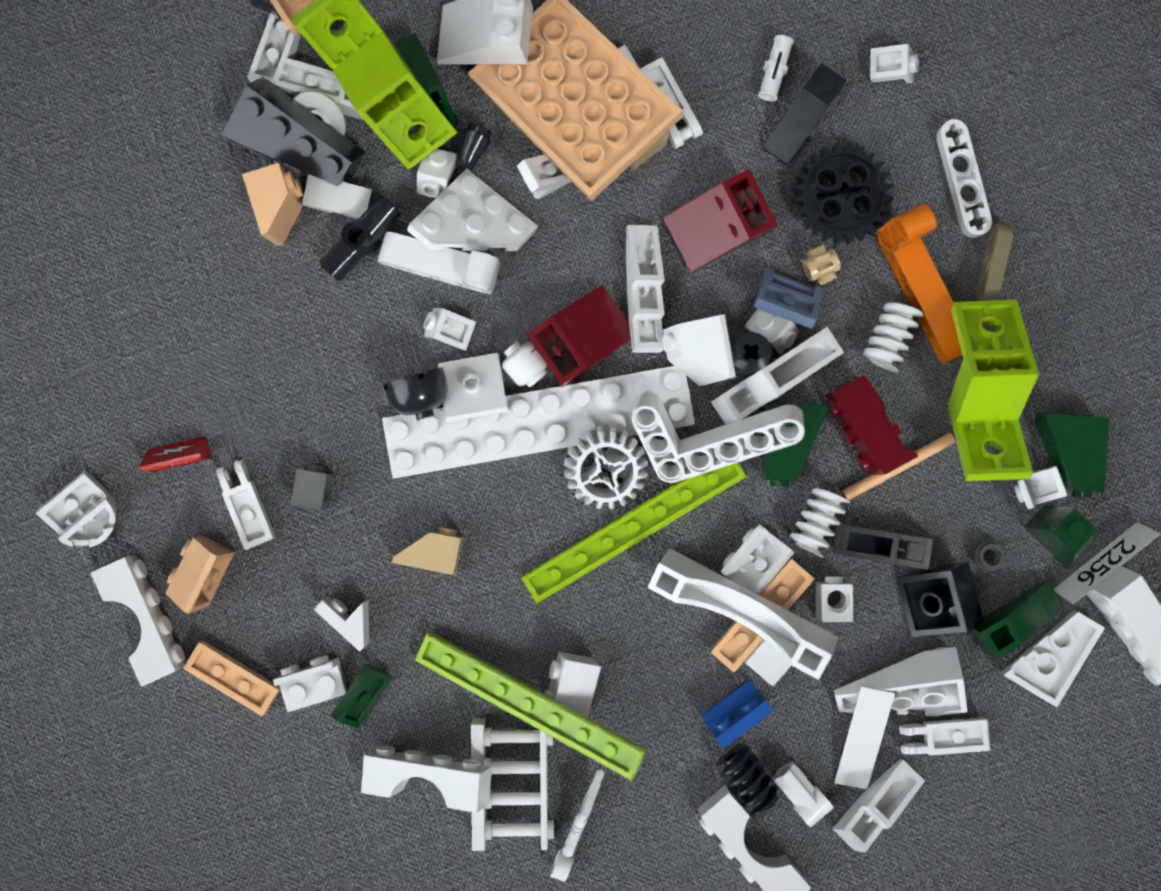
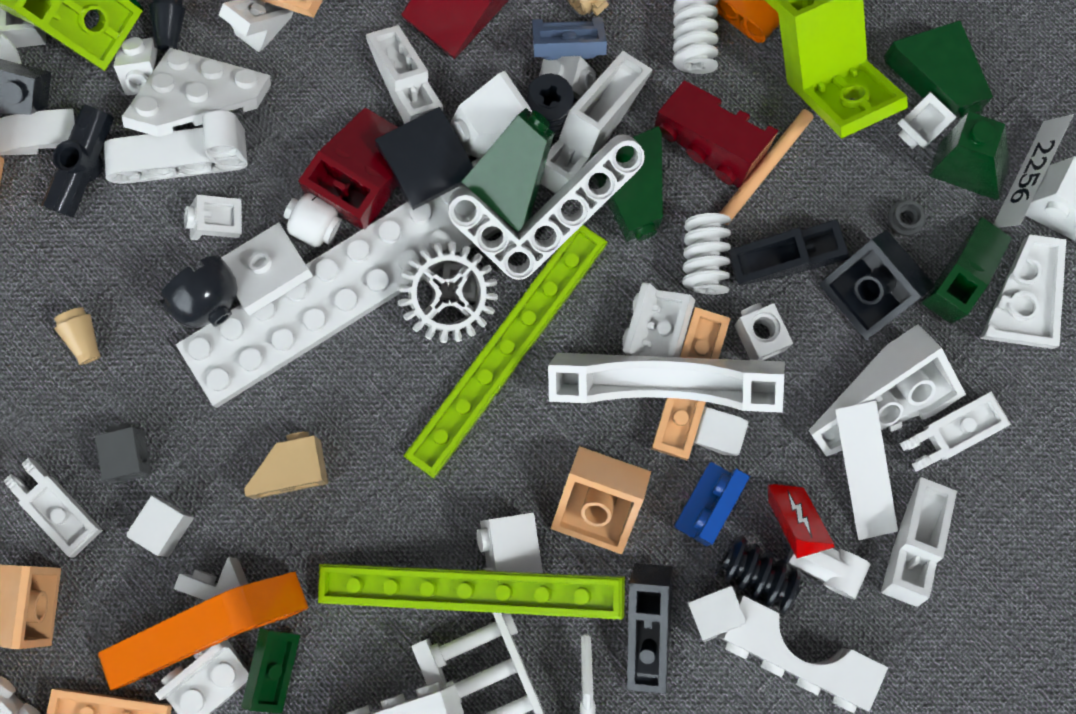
camera: 25 degrees left, 10 degrees down
(311, 379) = (78, 334): none -> tan cone
(319, 555) = (159, 526): none -> white panel
(324, 650) = (202, 628): none -> orange beam
(633, 353) = (425, 157): none -> black slope
(650, 782) = (649, 627): none -> black slope
(655, 674) = (601, 500): none -> light nougat slope
(696, 396) = (513, 168): none -> slope
(704, 795) = (717, 613): none -> white panel
(796, 753) = (799, 520): none -> red slope

